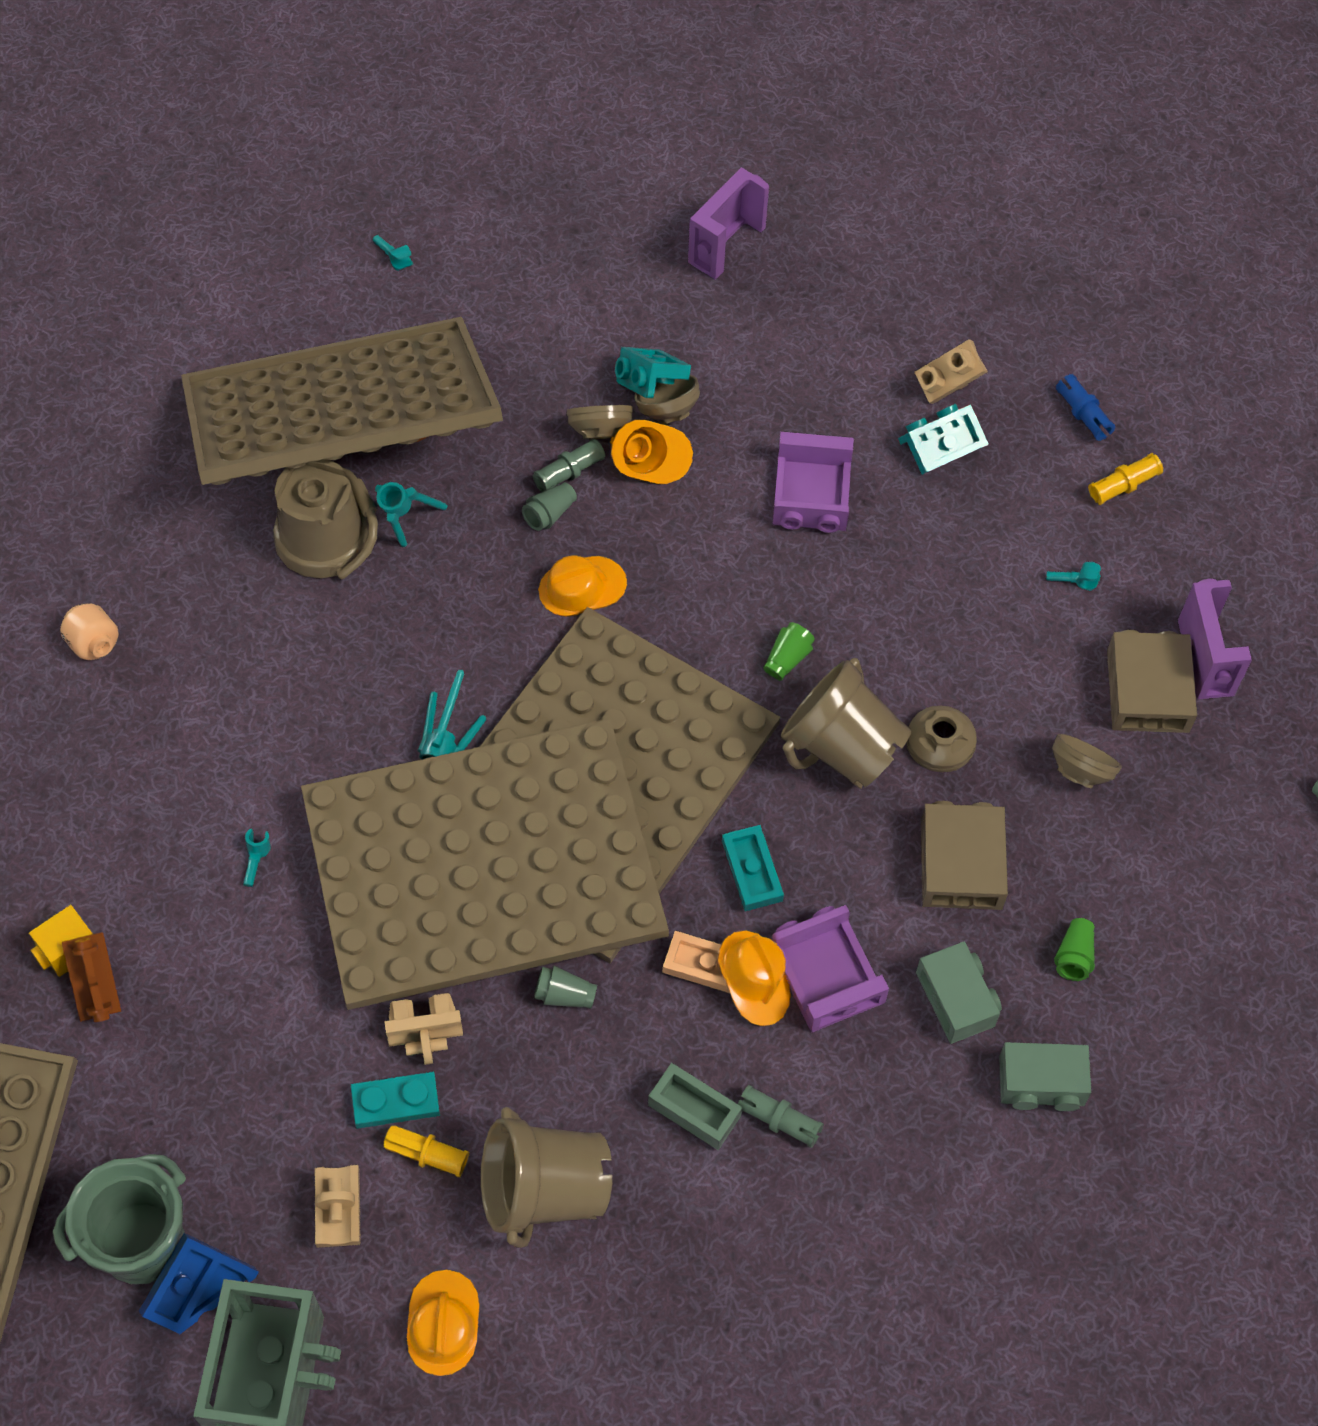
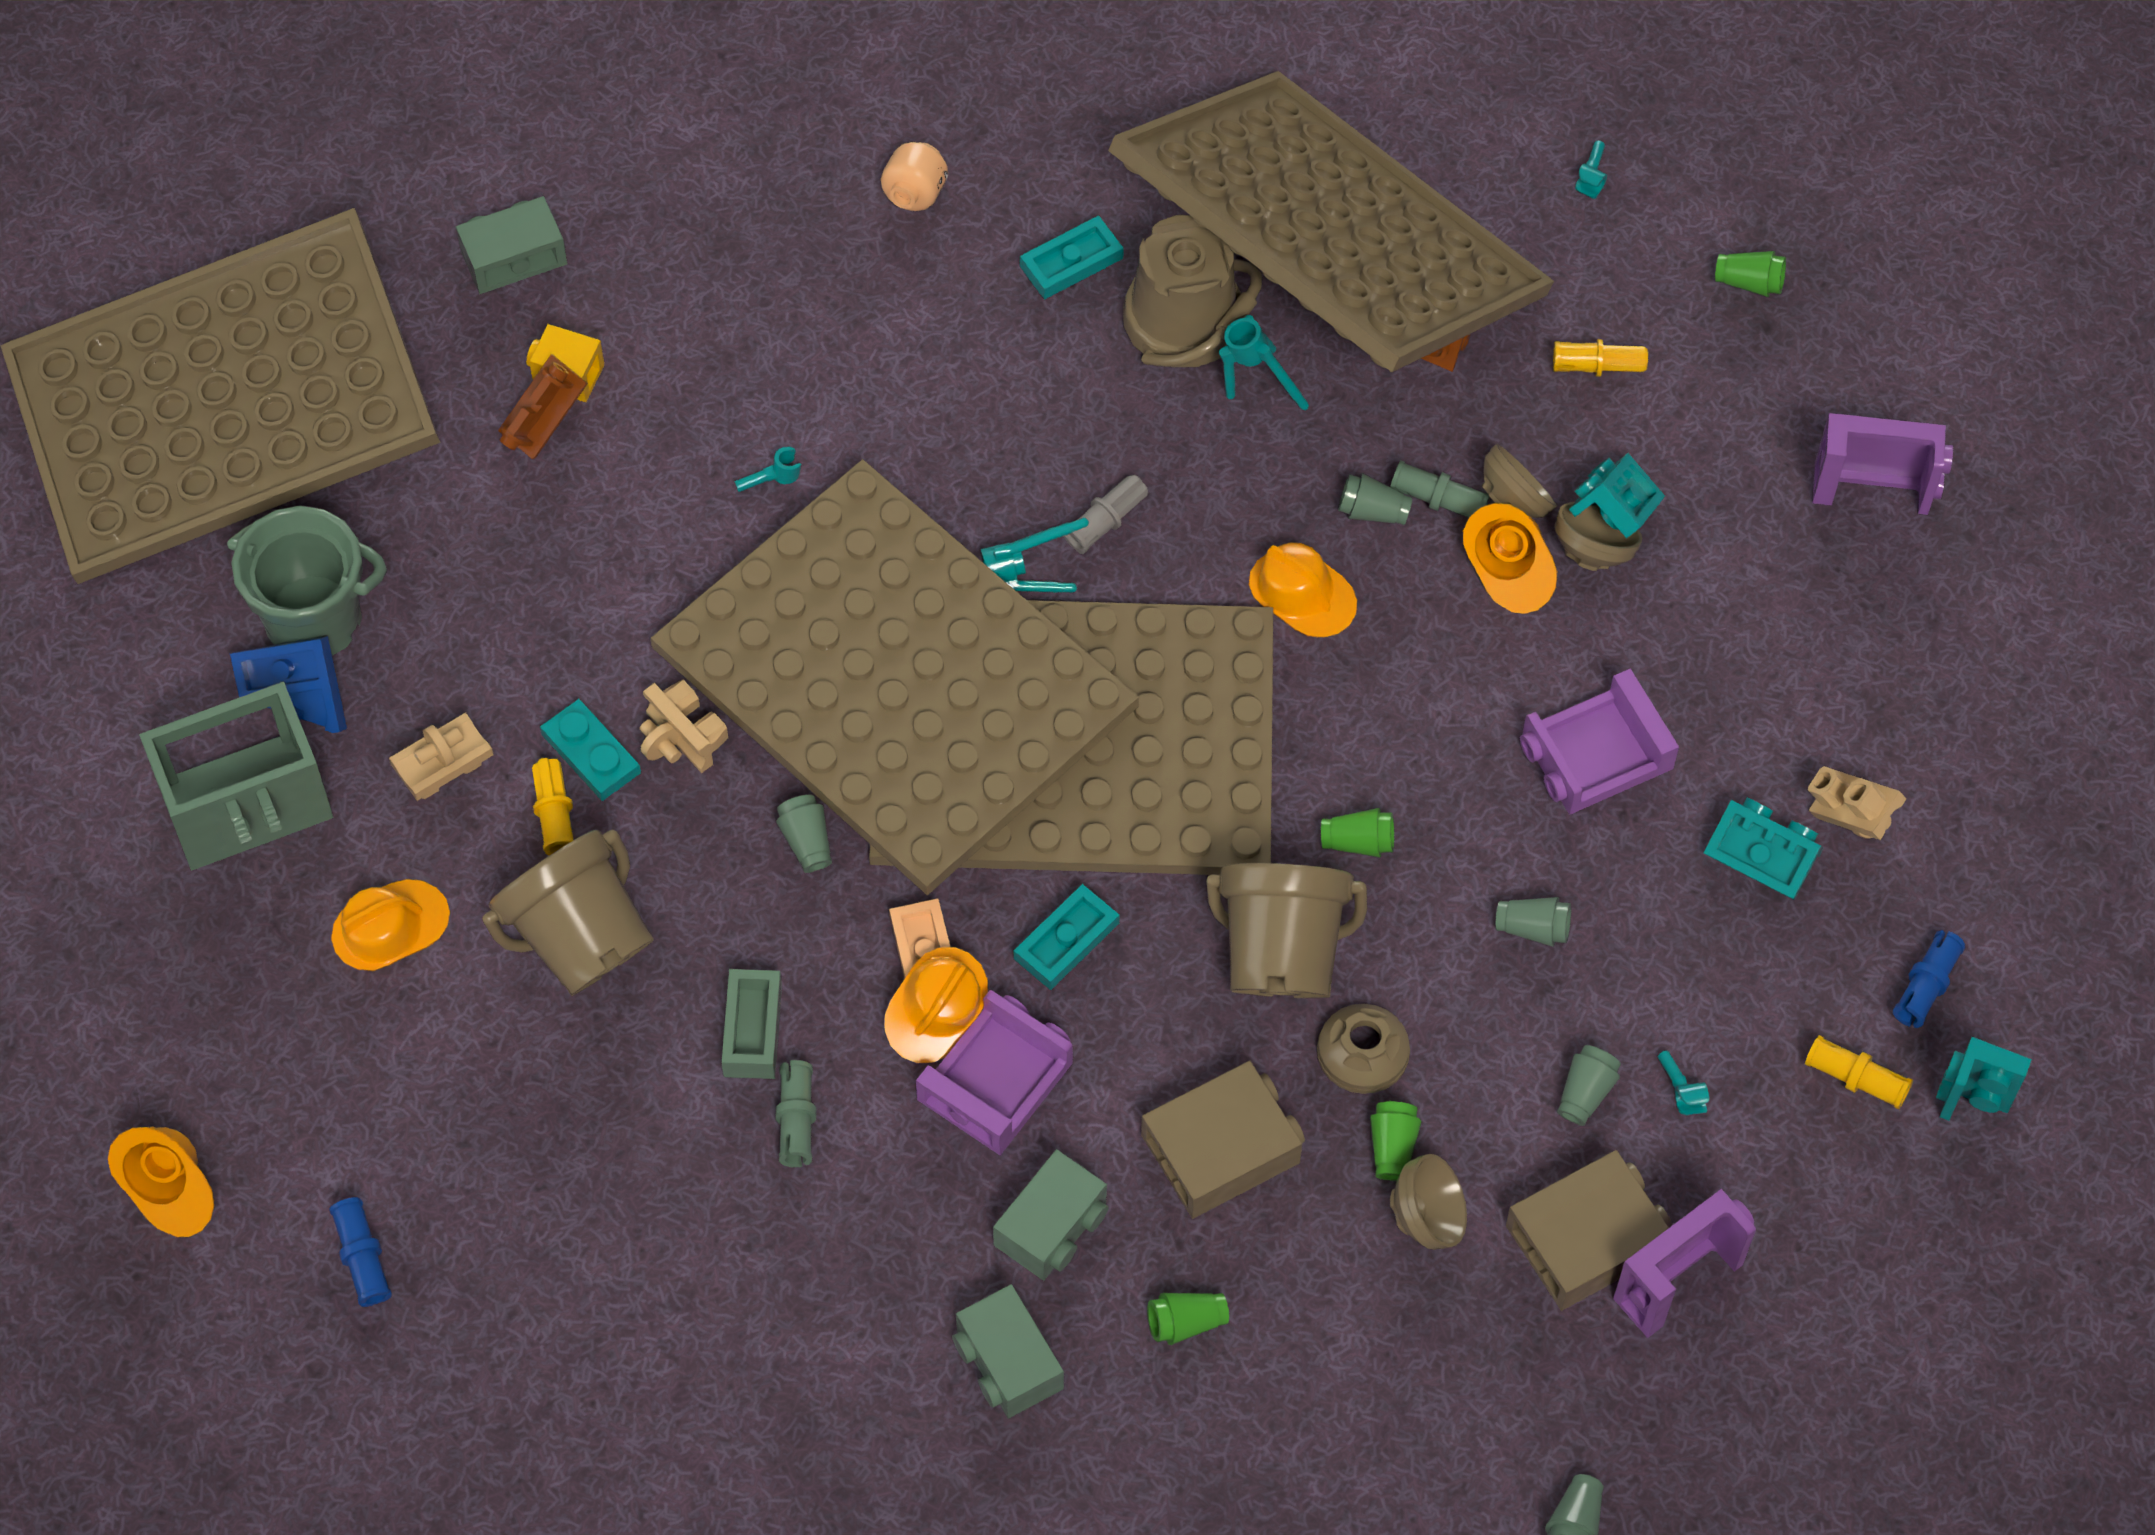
camera: 60 degrees right, 0 degrees up
(229, 574) = (1071, 257): none -> teal plate
(442, 662) = (1107, 512): none -> light grey axle
(534, 326) = (1598, 357): none -> yellow axle
(536, 211) = (1752, 271): none -> bright green cone
(915, 587) = (1535, 919): none -> sand green cone
(1021, 756) = (1393, 1137): none -> bright green cone
(1047, 625) = (1588, 1083): none -> sand green cone
(1179, 415) = (1984, 1076): none -> teal bracket

